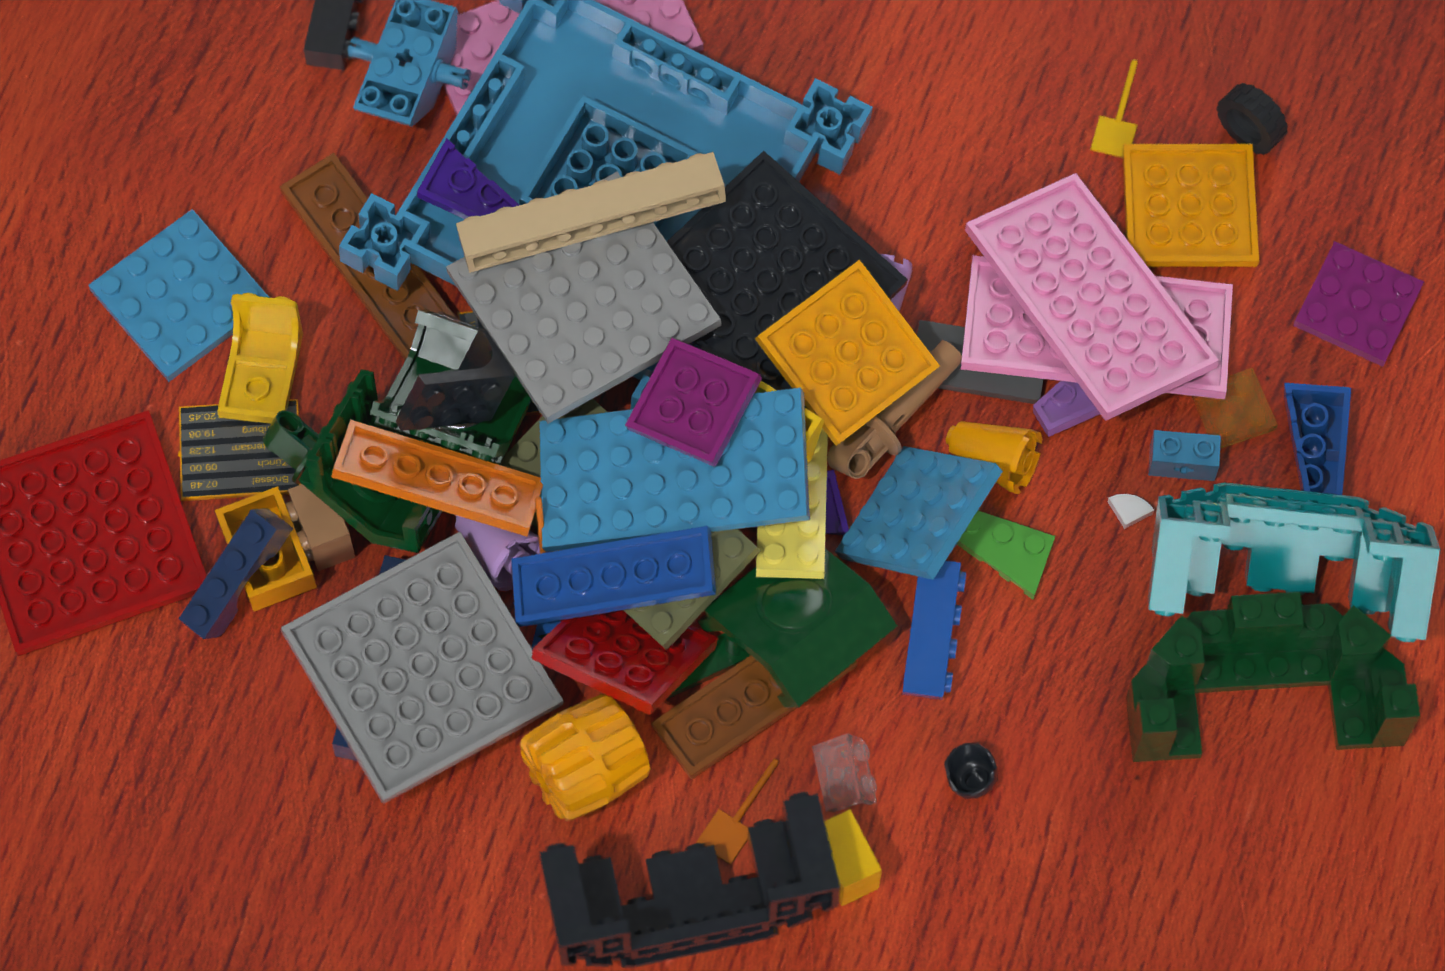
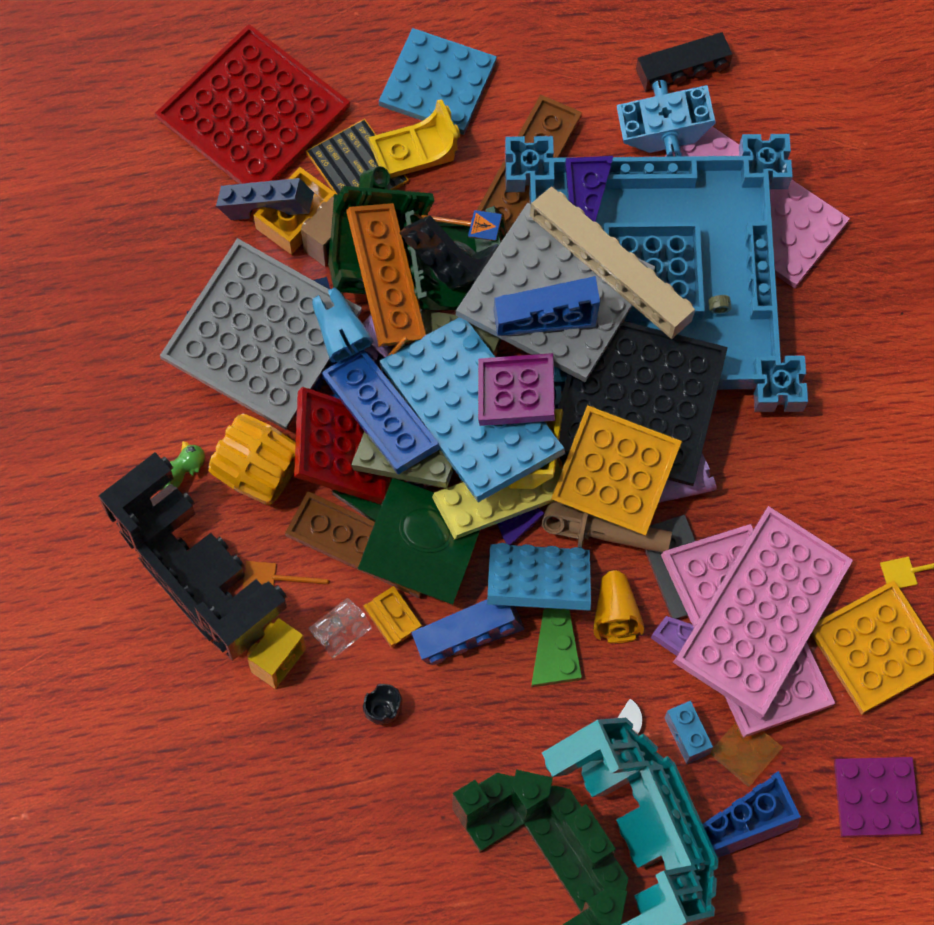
camera: 60 degrees right, 0 degrees up
(437, 336) = (483, 224): none -> piece
(475, 566) = (340, 327): none -> dark azure piece
(527, 840) = (189, 460): none -> bright green animal
(616, 309) = (548, 308): none -> blue wedge
(696, 132) = (720, 304): none -> olive axle
(865, 707) = (392, 616): none -> light orange plate

